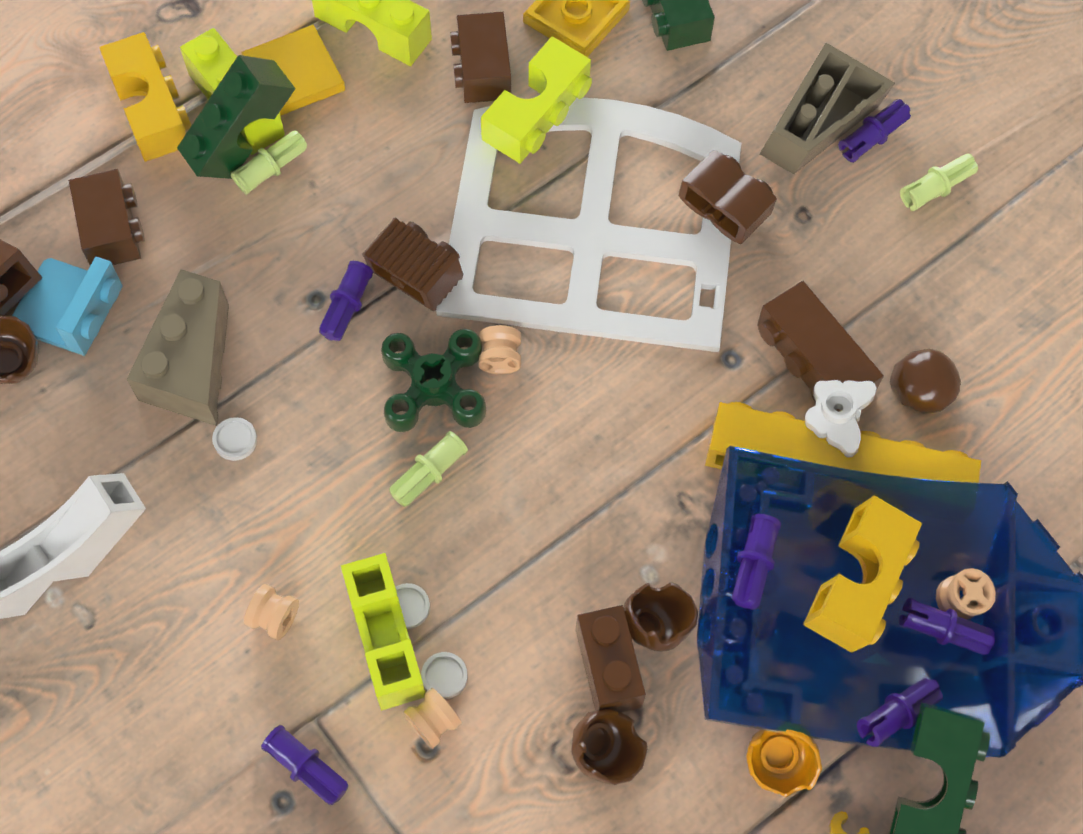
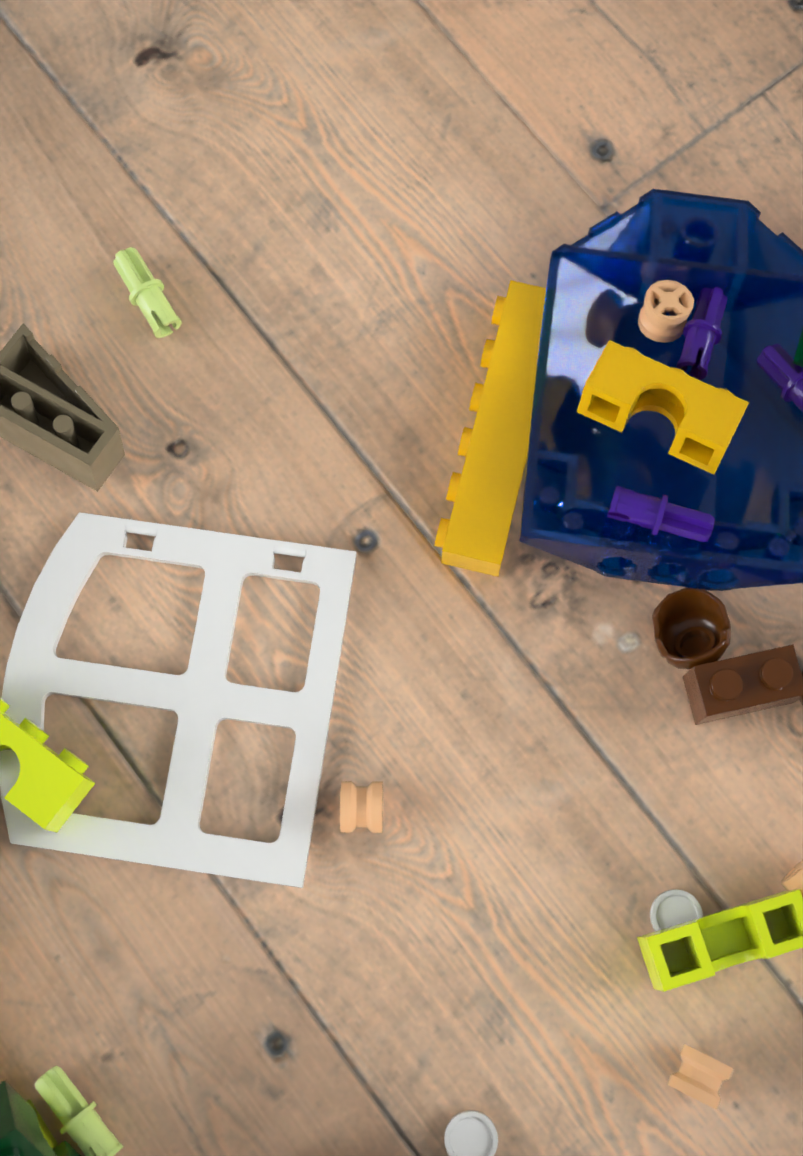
camera: 85 degrees left, 10 degrees up
(345, 300) = (288, 1004): dark purple axle -> none
(414, 263) = (242, 916): reddish brown brick -> none
(428, 469) = (514, 894): yellowish green axle -> none
(433, 392) = (383, 908): dark green gear -> none
(445, 674) = (756, 871): white piece -> none
(727, 196) = (164, 528): reddish brown brick -> none
(813, 340) = (366, 441): reddish brown brick -> none
(839, 427) = (478, 419): white animal -> none
(875, 130) = (73, 355): dark purple axle -> none
(926, 380) = (400, 332): reddish brown hair -> none

